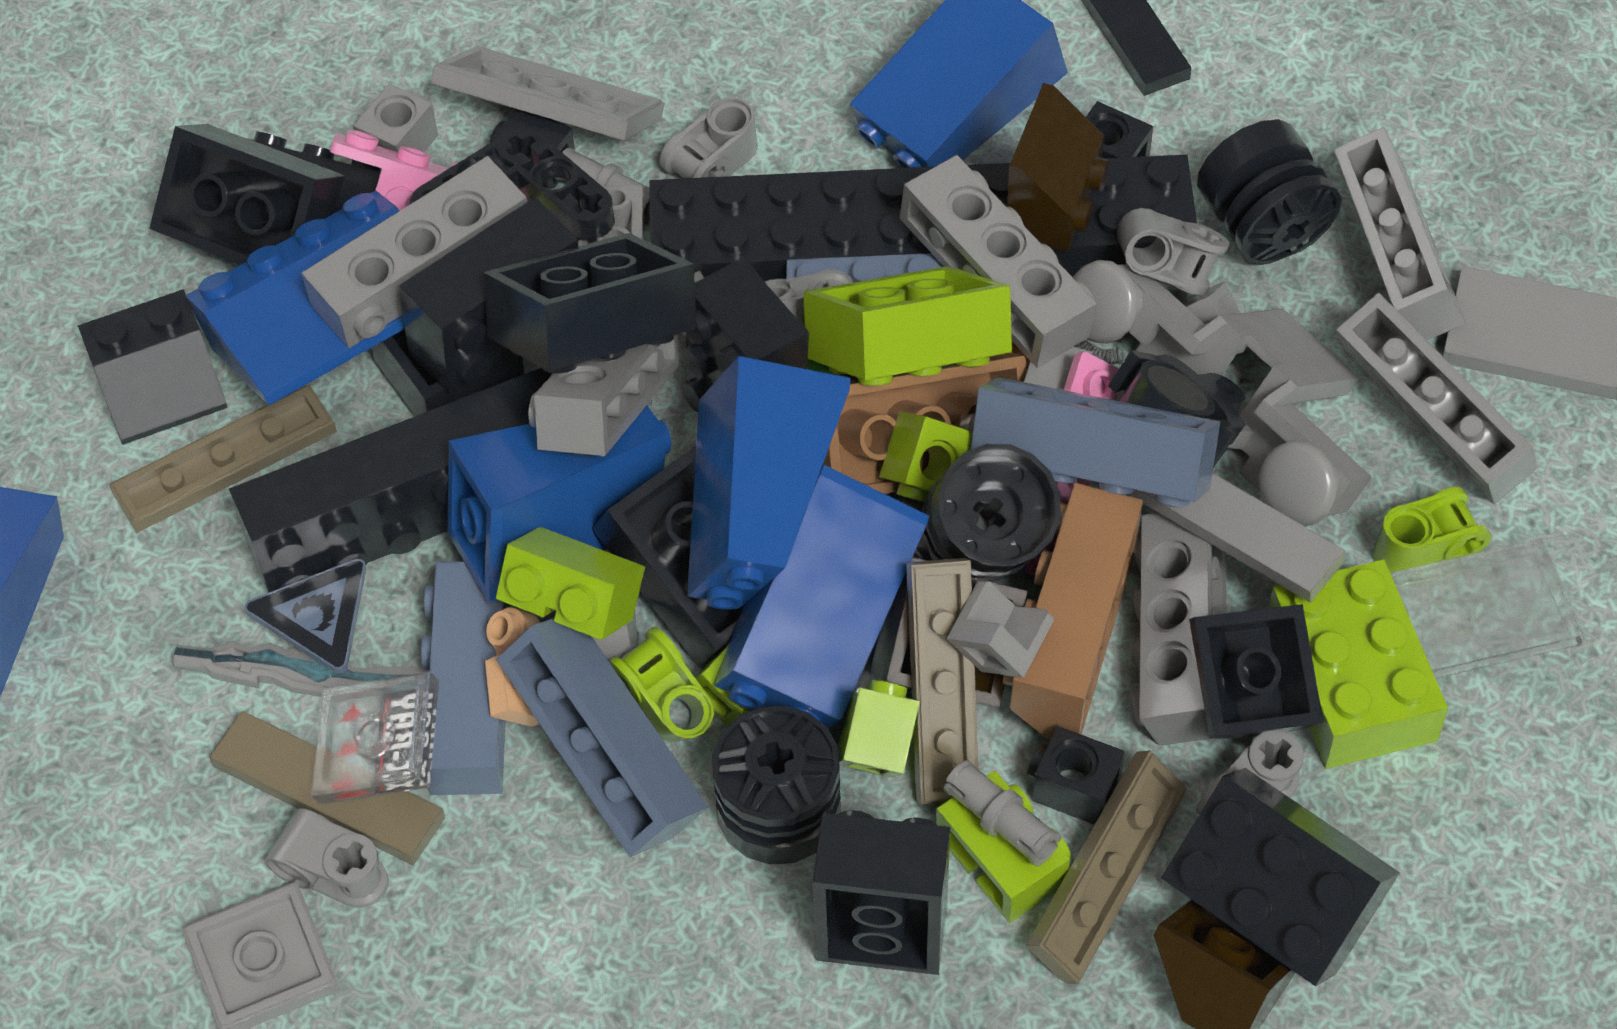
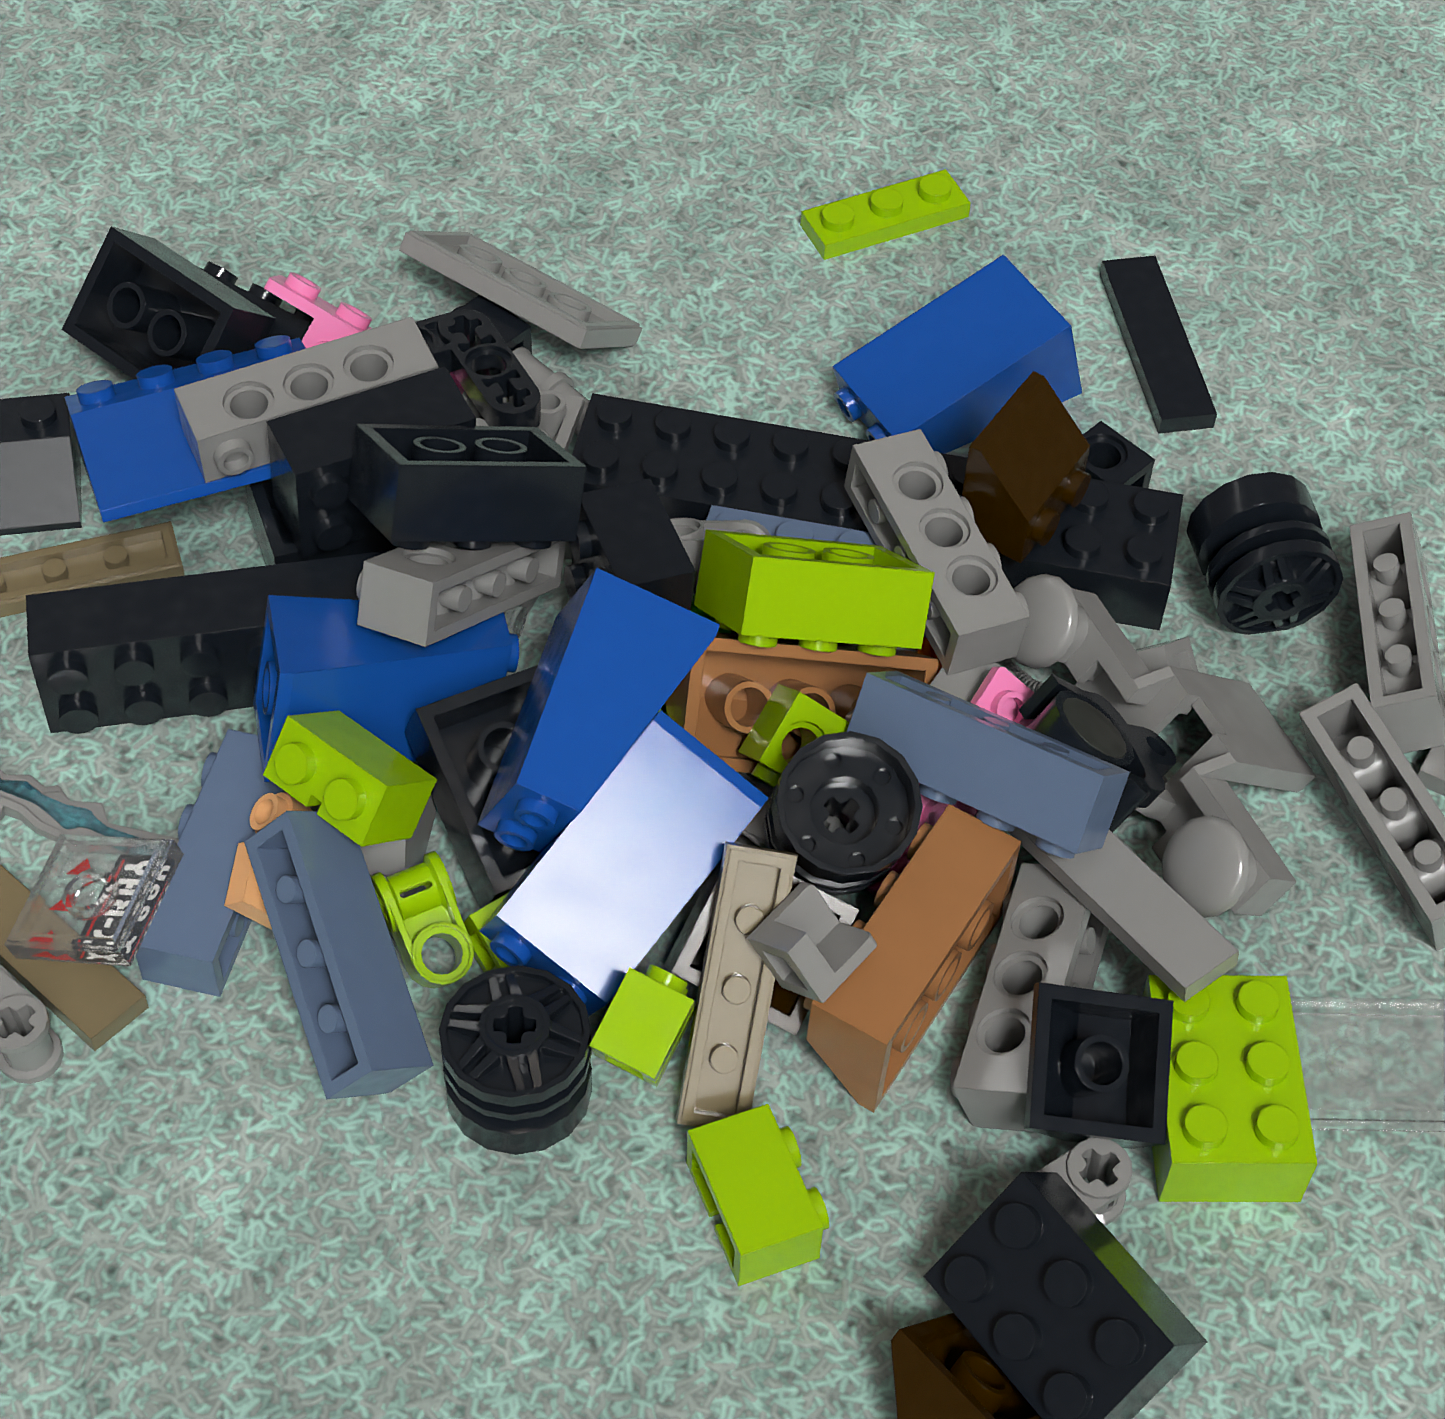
camera: 10 degrees right, 5 degrees down
(316, 613) = (86, 754): black piece -> none
(399, 120) = (359, 281): light grey brick -> none
(714, 142) = (681, 375): light grey piece -> none
(881, 892) = (586, 1207): black brick -> none
(1002, 813) = (757, 1153): light grey pin -> none
(1072, 751) = (868, 1162): black brick -> none
(1106, 867) = (866, 1250): dark tan tile -> none
(1178, 256) = (1144, 595): light grey piece -> none
(1434, 528) = (1351, 960): lime piece -> none

